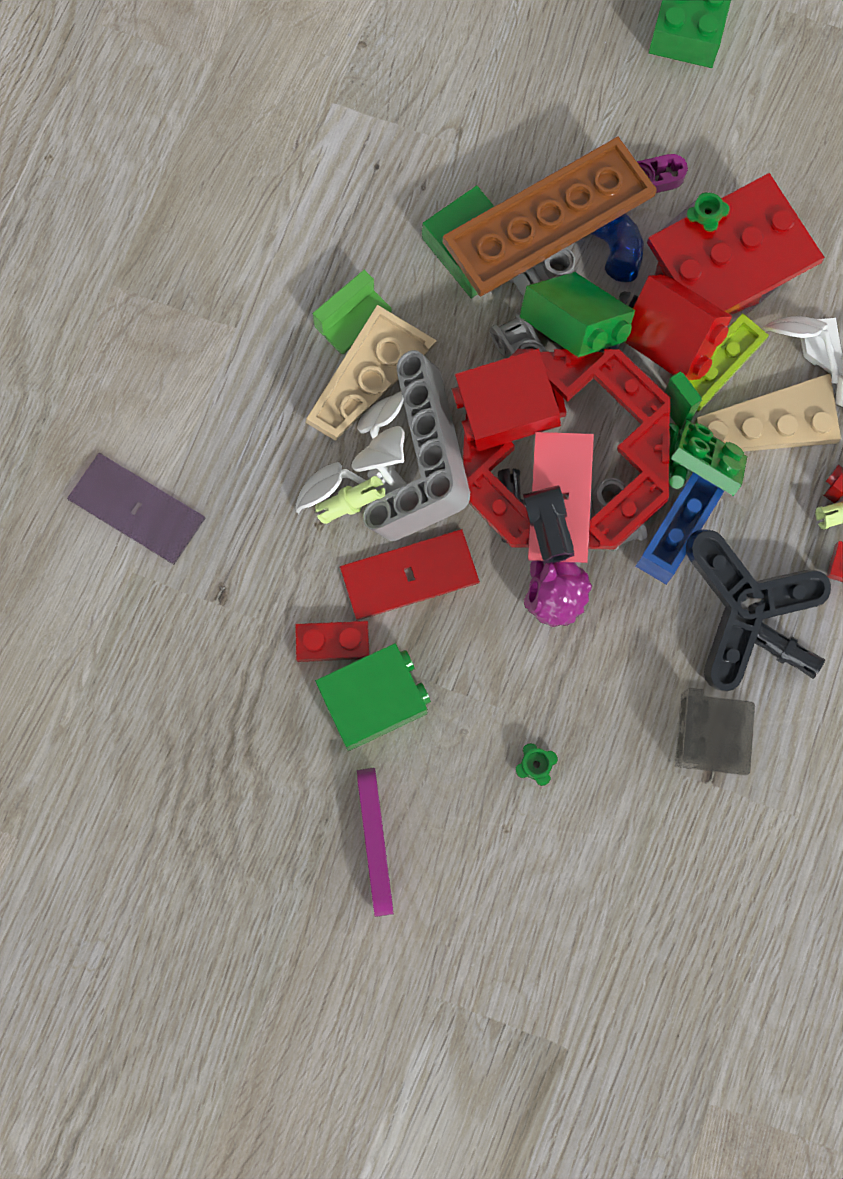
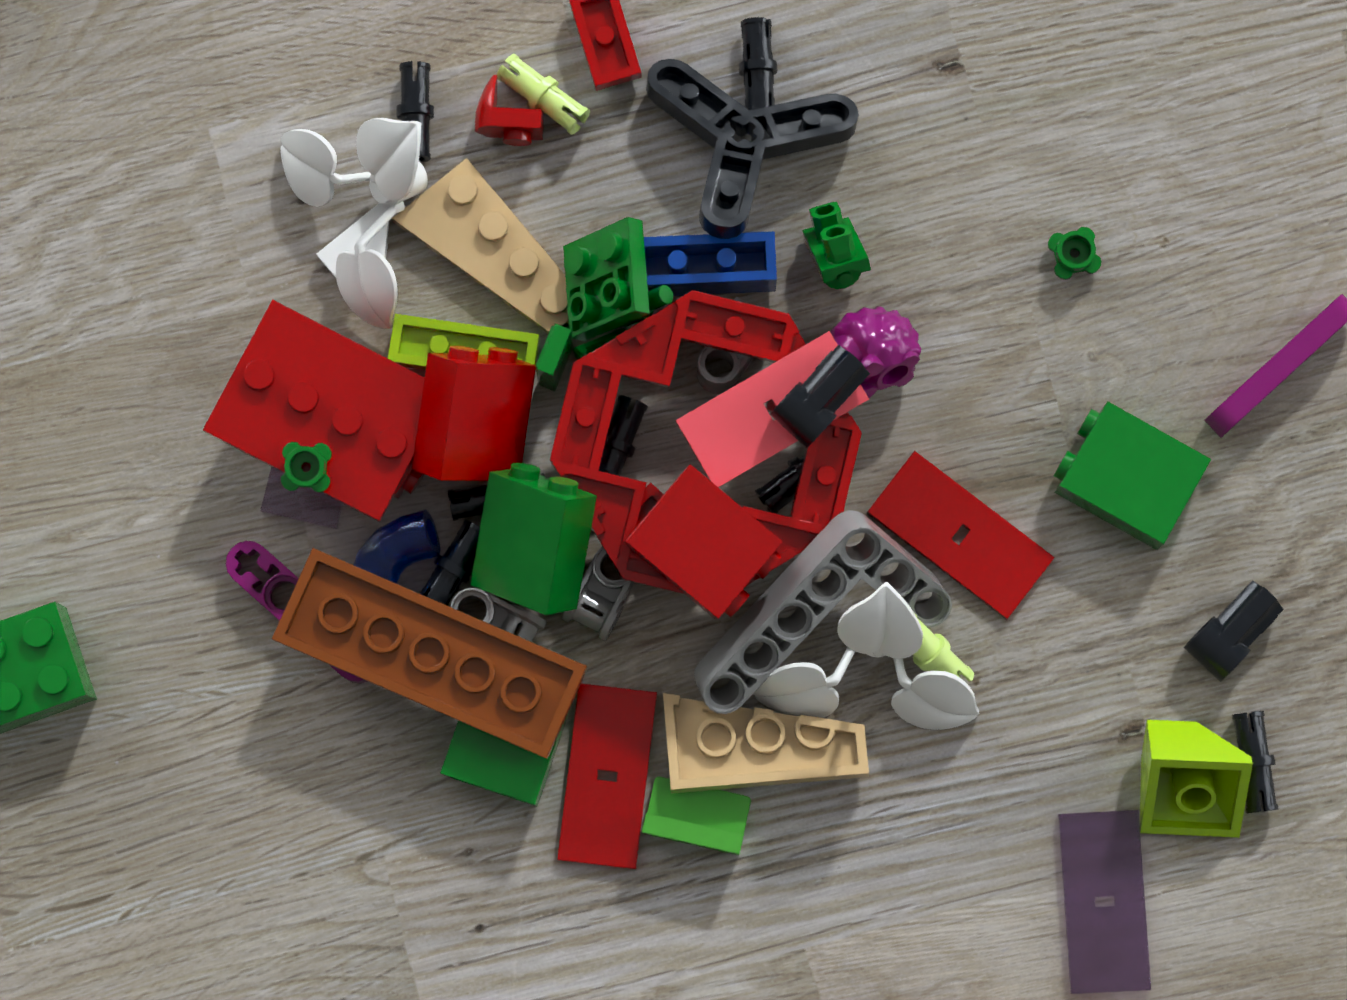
camera: 120 degrees left, 5 degrees up
(148, 650) = (1256, 746): none -> black pin
(166, 600) = (1191, 781): none -> lime slope
(232, 683) = (1226, 639): none -> black piece
(332, 641) = (1098, 566): red plate -> none
(431, 304) = (599, 815): none -> red piece
(588, 266) = (454, 565): none -> black pin
(604, 412) = (621, 435): none -> black pin
(639, 613) = (835, 247): none -> green hips
(714, 733) = (908, 86): clear smoke bracket -> none

